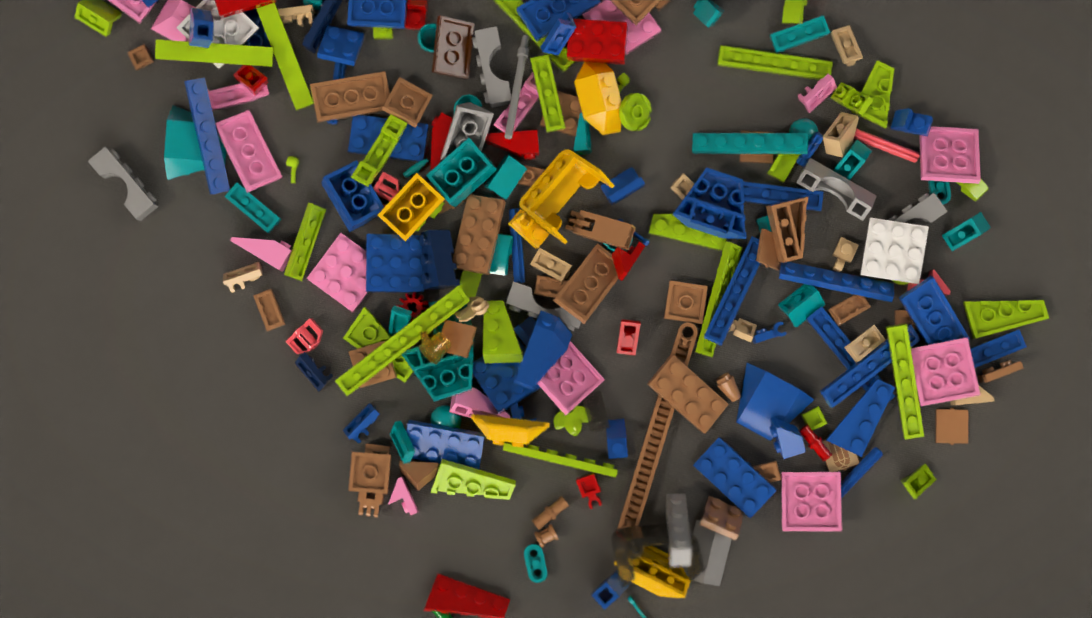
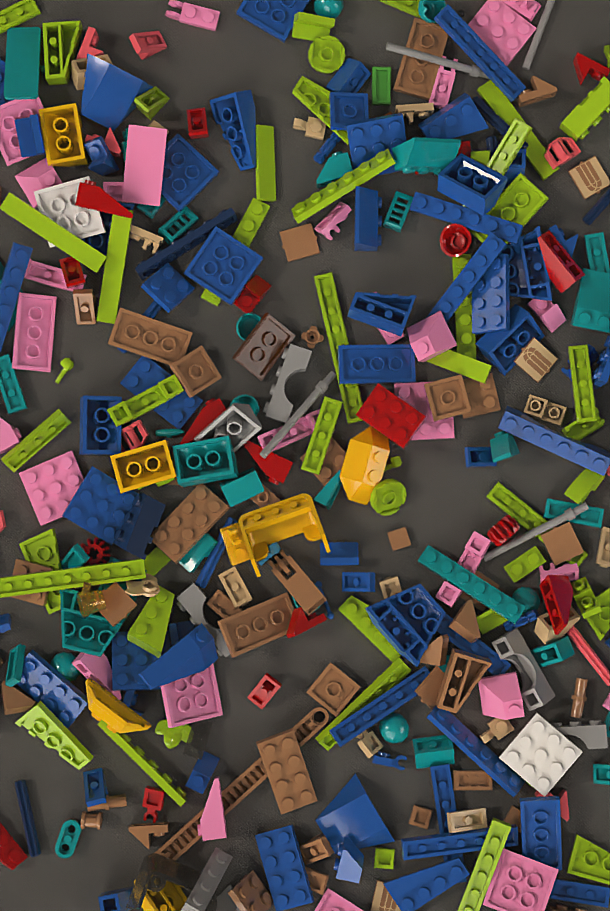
camera: 30 degrees right, 0 degrees up
(201, 28) = (53, 205): blue slope -> none
(278, 103) = (84, 306): none -> medium nougat slope
(487, 10) = (312, 332): none -> medium nougat plate
(490, 567) = (27, 818): none -> dark blue axle
(532, 505) = (95, 787): none -> blue slope
(559, 35) = (360, 392): blue panel -> none
(564, 214) = (274, 549): none -> dark azure hand
(595, 518) = (143, 831): none -> medium nougat slope
(649, 470) = (213, 821): none -> bright pink slope
(653, 198) = (358, 581): none -> blue slope
(665, 143) = (399, 538): none -> medium nougat tile
(692, 33) = (479, 457): none -> blue slope
(728, 386) = (326, 784): medium nougat cone -> none
(736, 123) = (470, 560): none -> bright pink slope
(749, 82) = (503, 530): none -> red gear
(752, 445) = (316, 849): none -> medium nougat slope
(754, 217) = (436, 652): none -> medium nougat slope
(756, 304) = (394, 728): none -> teal hair
(765, 178) = (466, 623): none -> medium nougat slope
(784, 102) = (524, 564): none -> lime plate
(797, 36) = (569, 514): none -> light grey bar
(805, 65) = (562, 543): none -> medium nougat piece
(815, 442) = (372, 880): red pin -> none
(823, 366) = (420, 816): none -> medium nougat tile
(831, 112) = (558, 598): none -> red slope
(831, 223) = (501, 696): none -> bright pink slope
(897, 186) = (579, 698): none -> medium nougat pin

